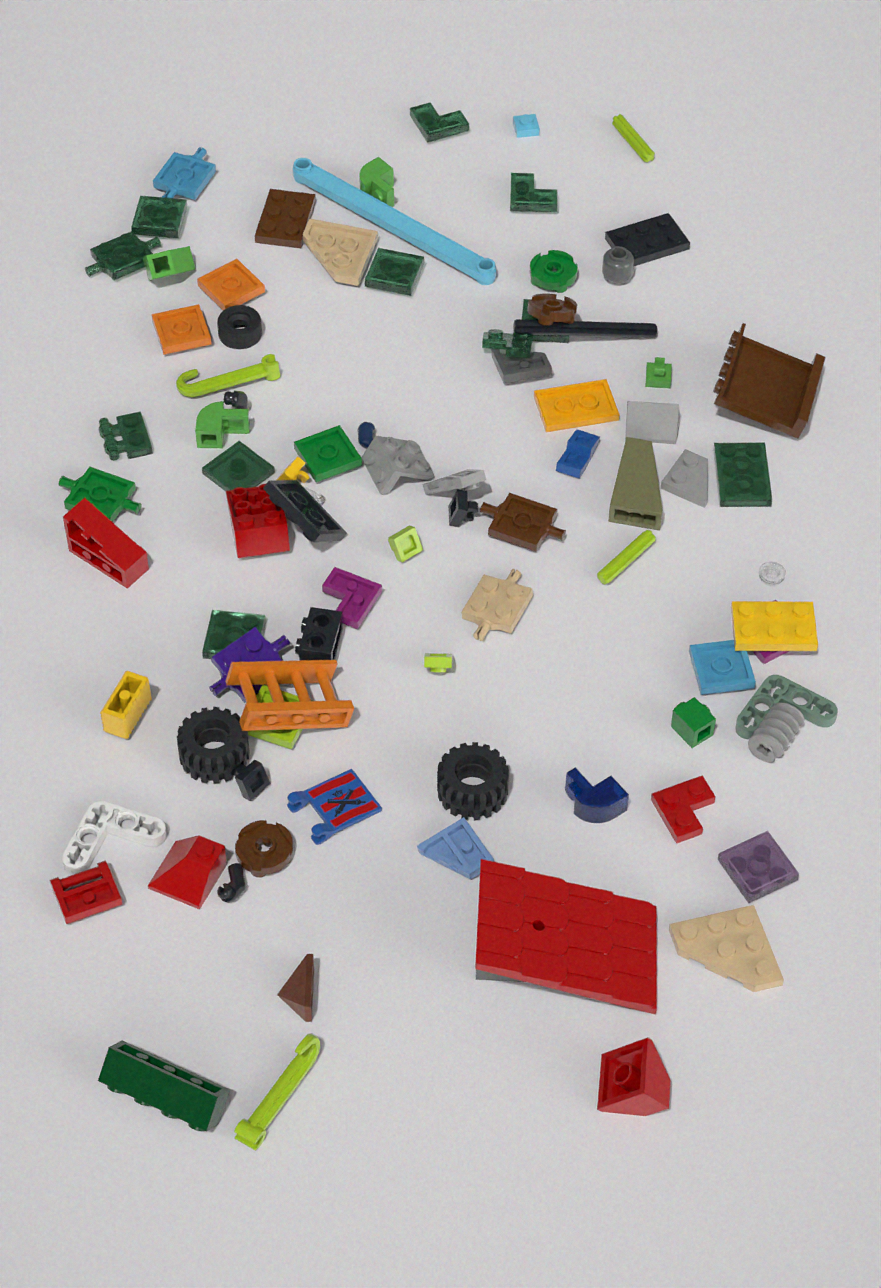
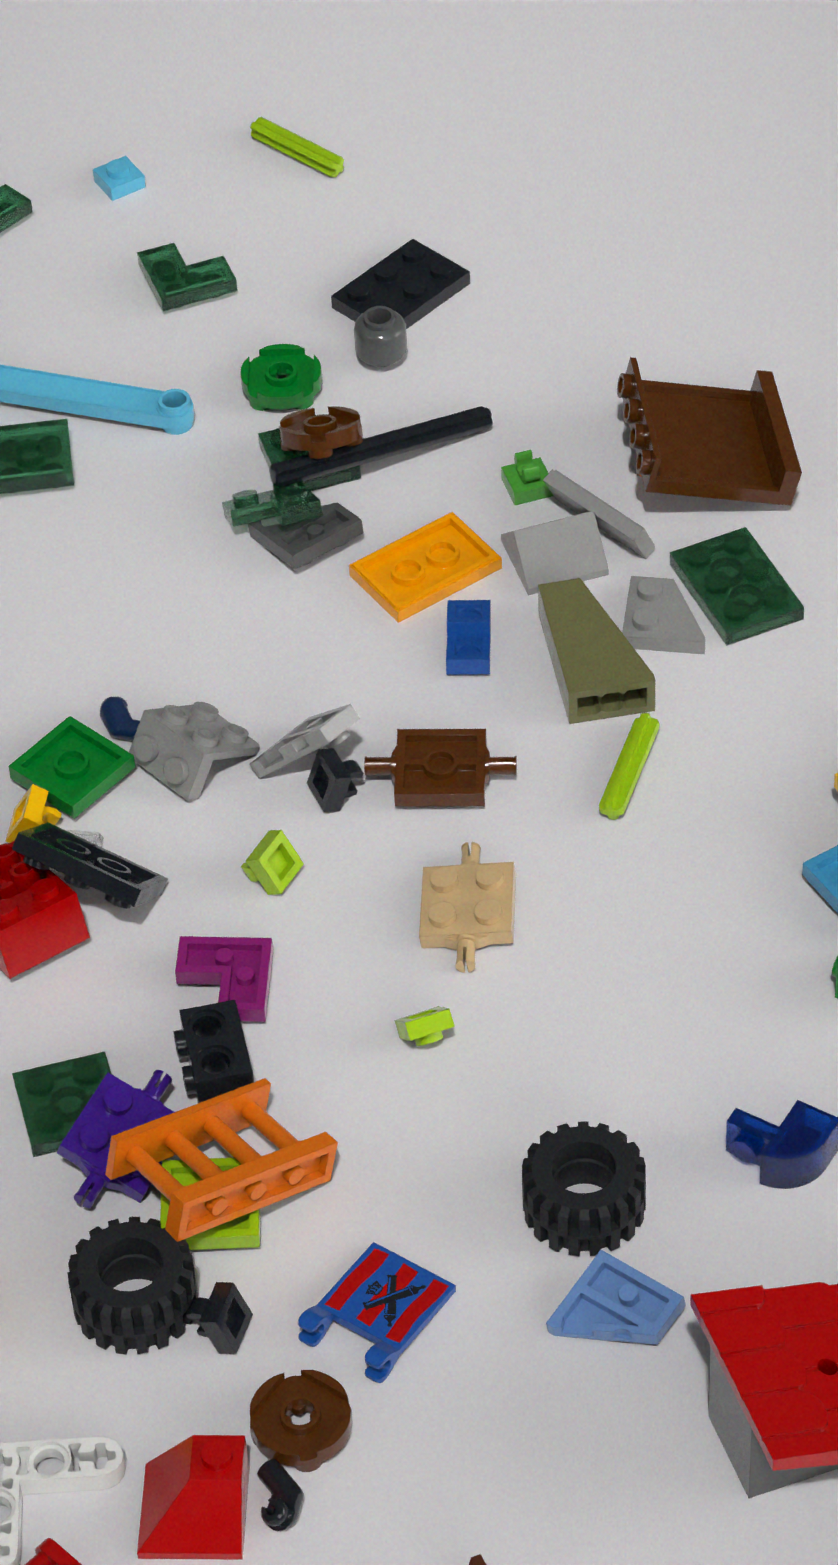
camera: 20 degrees left, 5 degrees down
(686, 407) = (607, 517): none -> light grey tile

